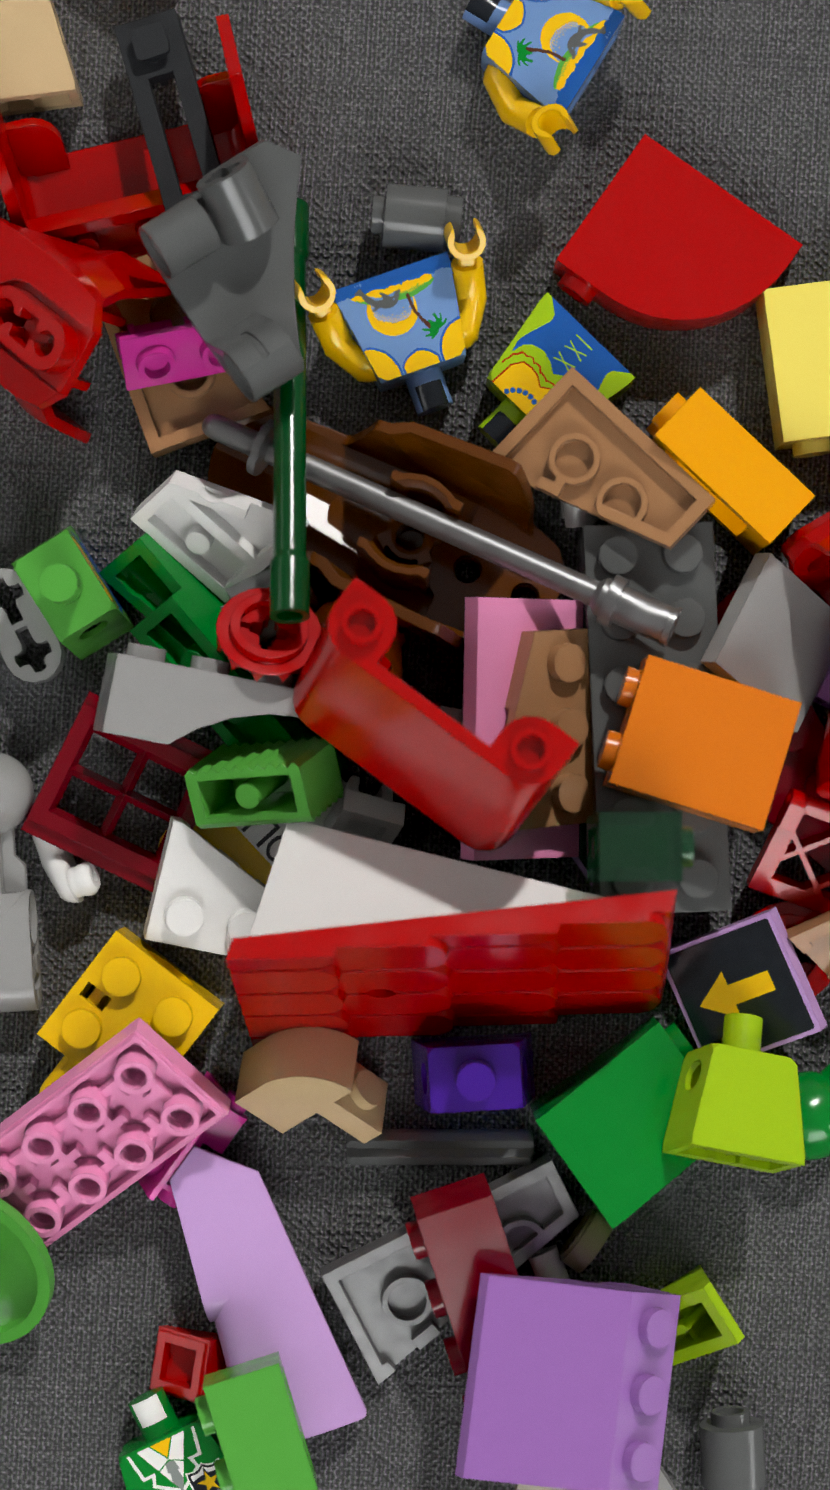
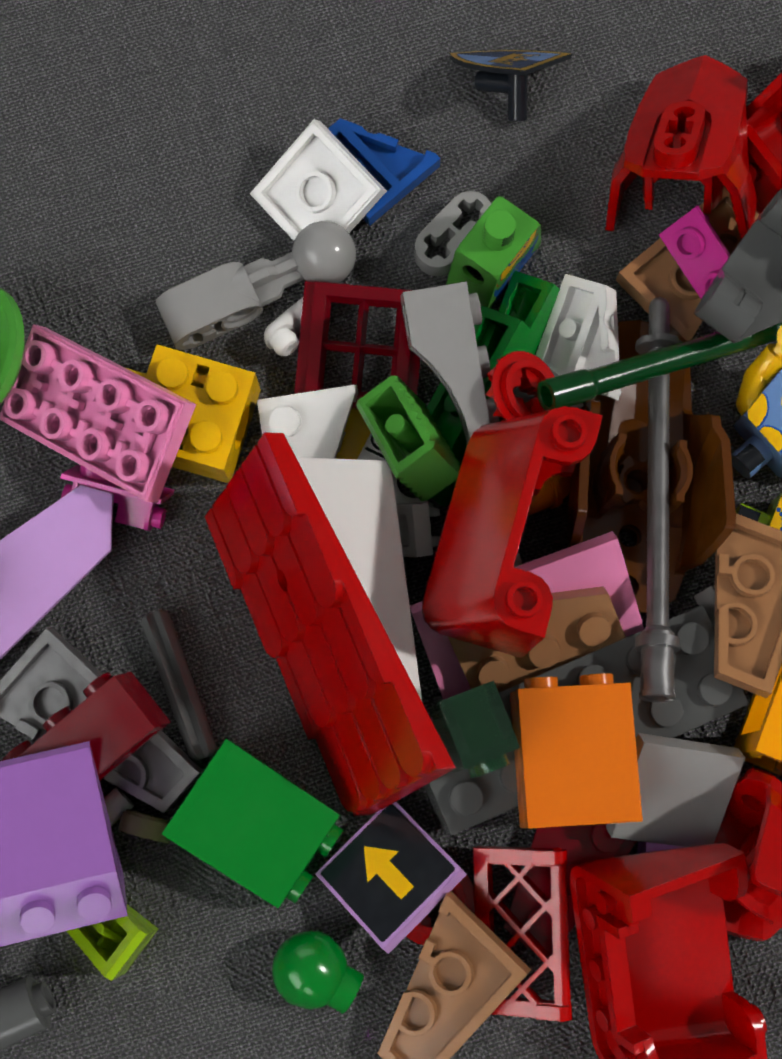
camera: 65 degrees right, 10 degrees down
(308, 1074) = (201, 564): tan brick -> none
(473, 1072) = (247, 689): dark purple torso -> none
(738, 1103) = (298, 902): lime torso -> none

